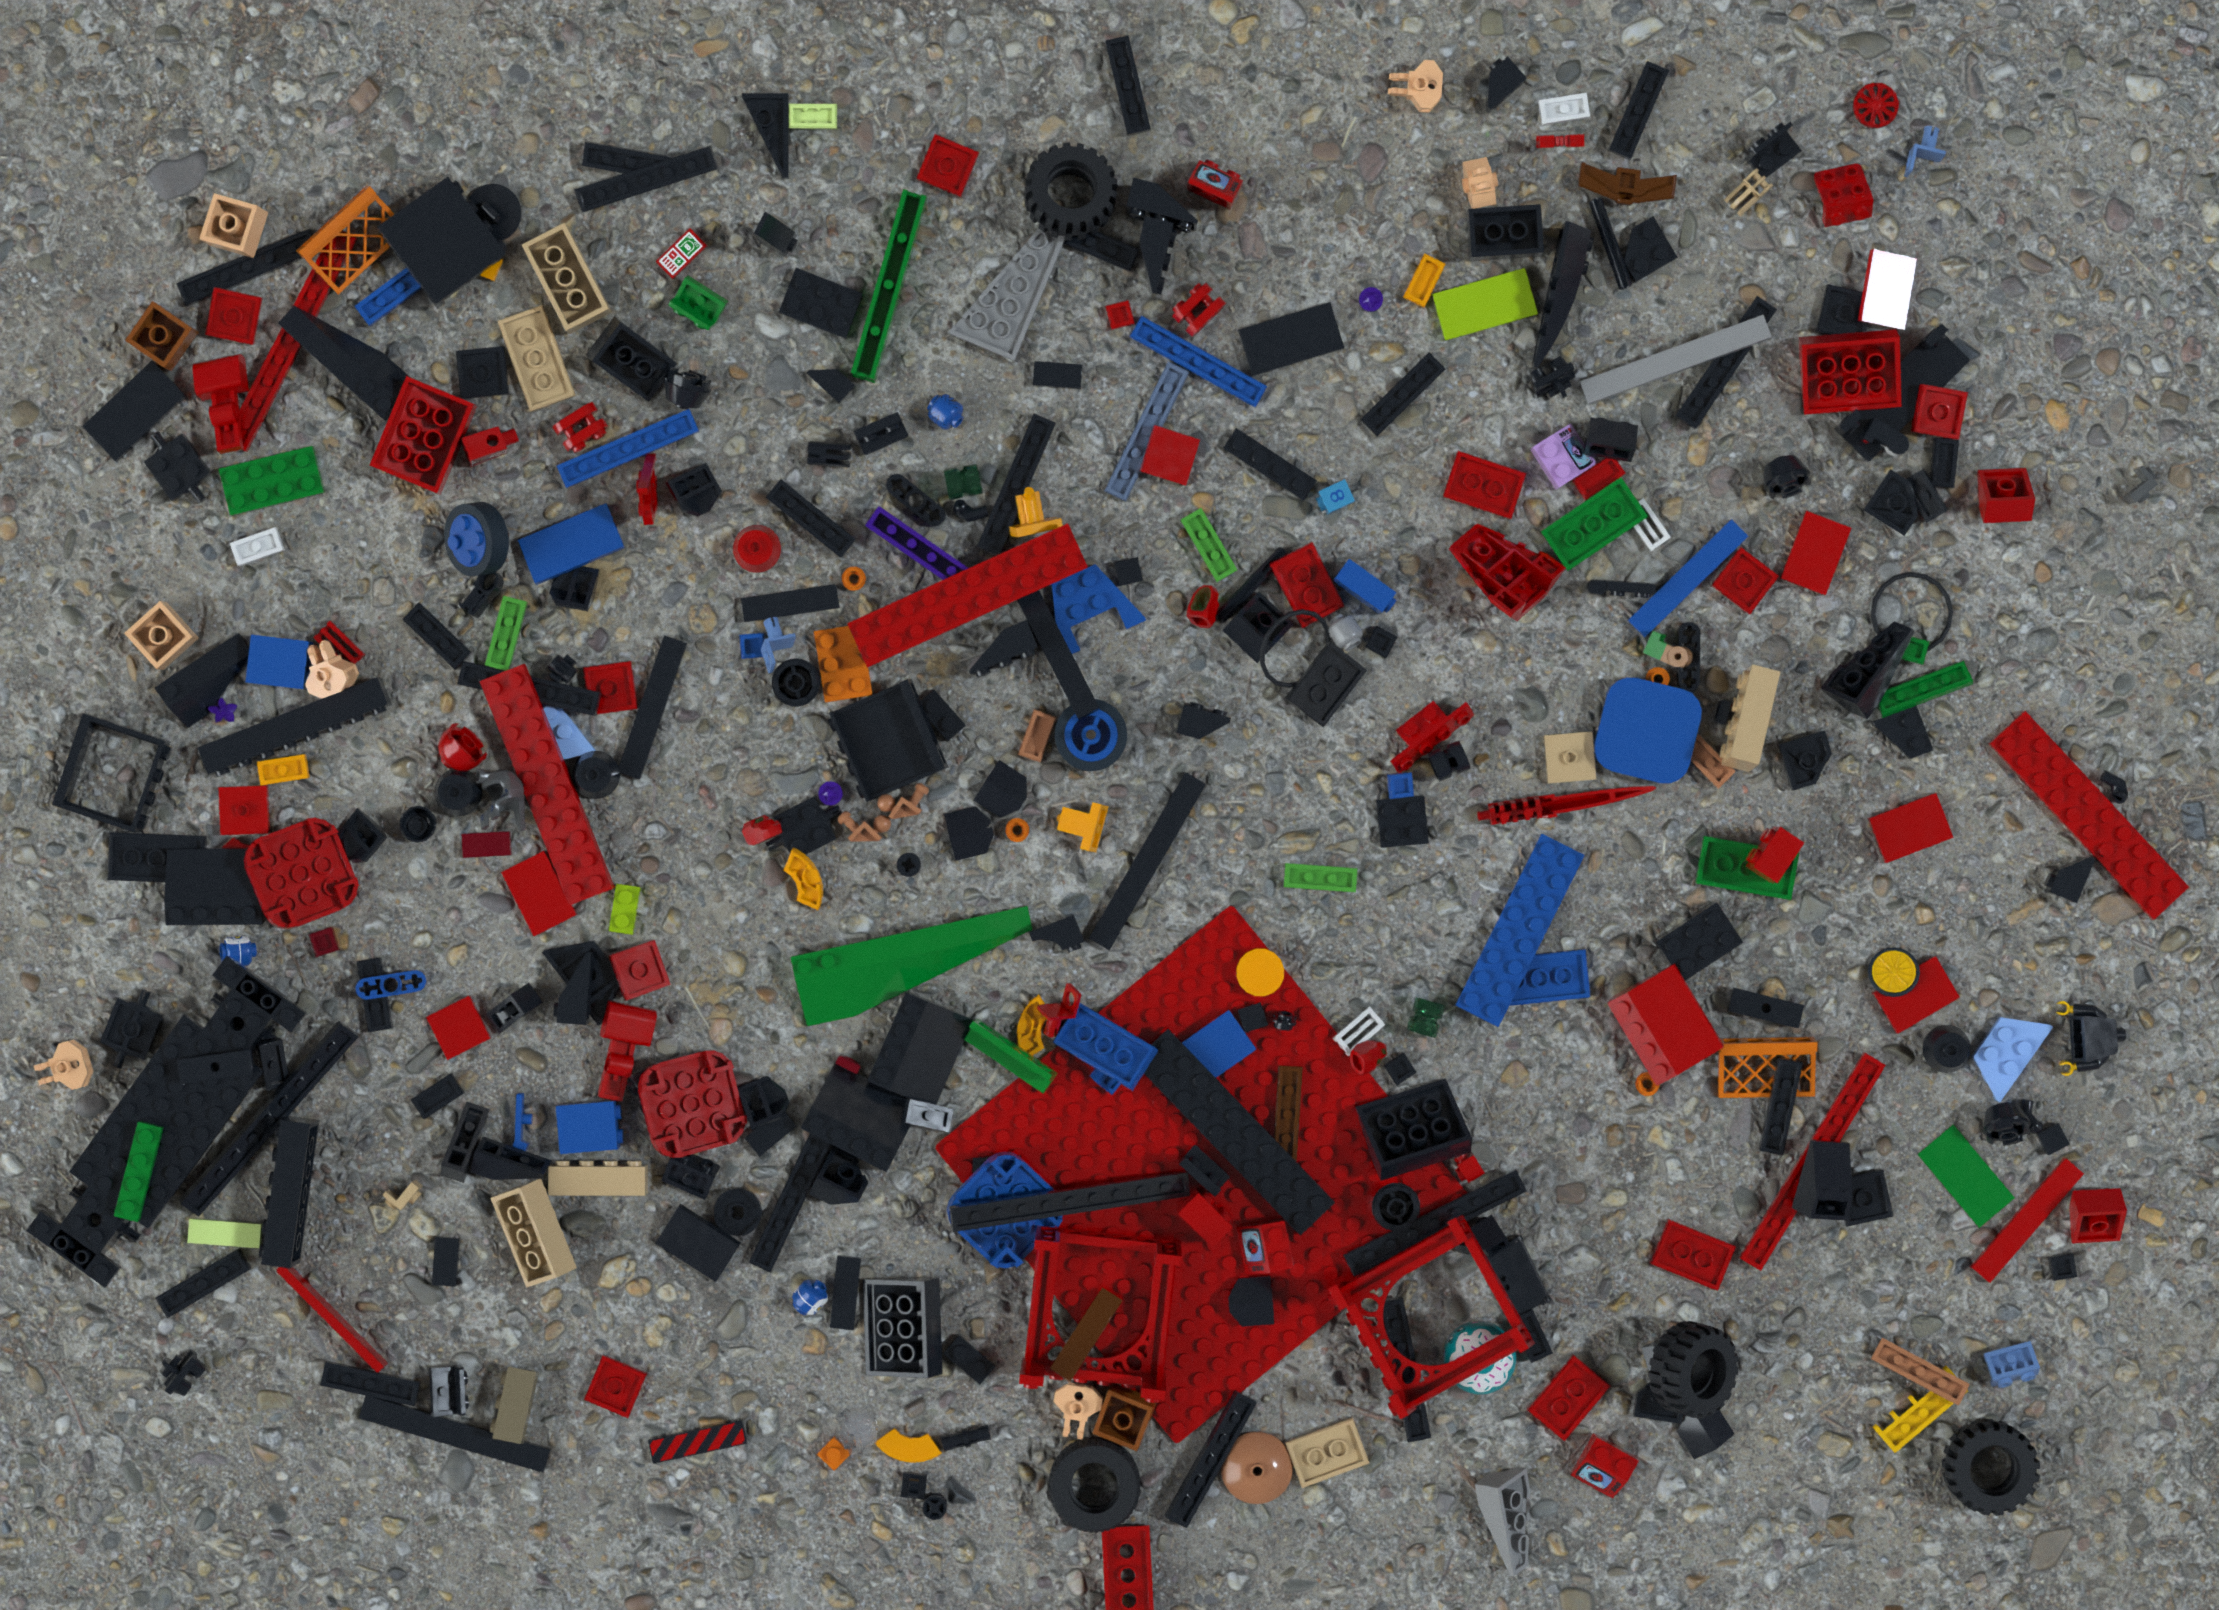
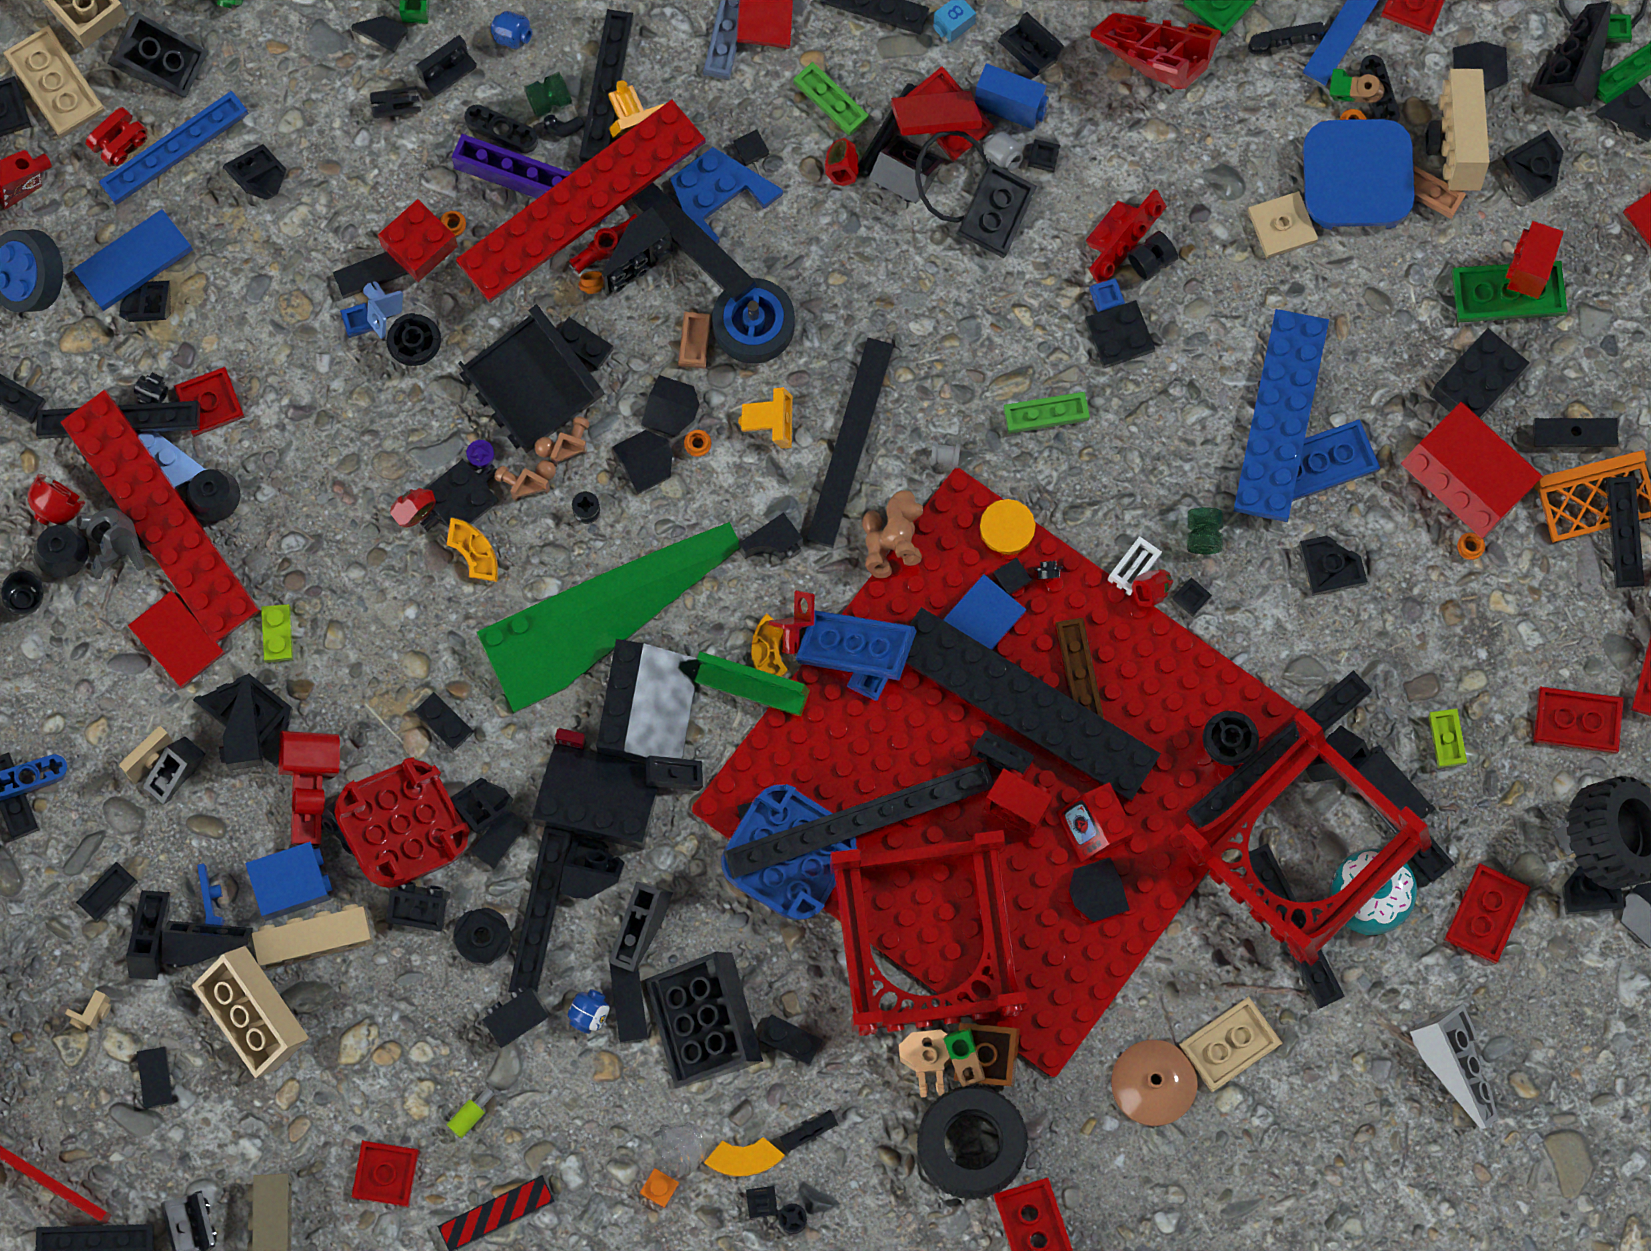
camera: 10 degrees left, 15 degrees down
(458, 1027) = (115, 809): red tile -> none
(480, 597) = (44, 338): black piece -> none
(486, 844) = (105, 600): dark red tile -> none
(494, 995) = (145, 755): none -> tan plate
(506, 633) = (80, 367): bright green plate -> none
(639, 970) = (308, 693): red plate -> none
(647, 490) = (207, 190): red wing -> none
(652, 707) = (260, 410): black tile -> none
(686, 388) = (224, 68): black cone -> none
(693, 1356) = (469, 1114): none -> lime piece
(698, 1242) = (444, 981): black tile -> none
(747, 1020) = (443, 721): none -> black plate
(749, 1288) = (515, 1017): none -> black brick
(756, 548) = (338, 217): red cone -> none
(811, 518) = (391, 172): black plate -> none
(819, 592) = (417, 240): none -> red brick
(841, 665) = (461, 315): orange plate -> none
(869, 1236) = (640, 924): none -> black slope
(961, 663) = (591, 282): none -> orange plate
(969, 637) = (595, 251): none -> red pin
(1086, 1334) = (917, 970): reddish brown tile -> none
(1104, 1419) = (964, 1056): none -> leg
(1164, 959) = (895, 536): none -> nougat animal
(1198, 722) = (871, 281): black slope -> none
(1210, 1458) = (1098, 1083): black plate -> none
(1224, 894) = (945, 454): none -> light grey bush
(1294, 590) = (936, 113): none -> red tile
(1396, 539) = (1032, 44): none -> black bracket
(1414, 1129) = (1227, 654): black slope -> none
(1468, 1167) = (1299, 682): red plate -> none
(1524, 1072) = (1331, 566): none -> black plate
(1550, 805) = (1276, 274): red piece -> none
(1578, 1244) = (1447, 738): none -> lime plate
(1604, 1466) = (1551, 978): red slope -> none
(1784, 654) = (1483, 56): none -> black slope

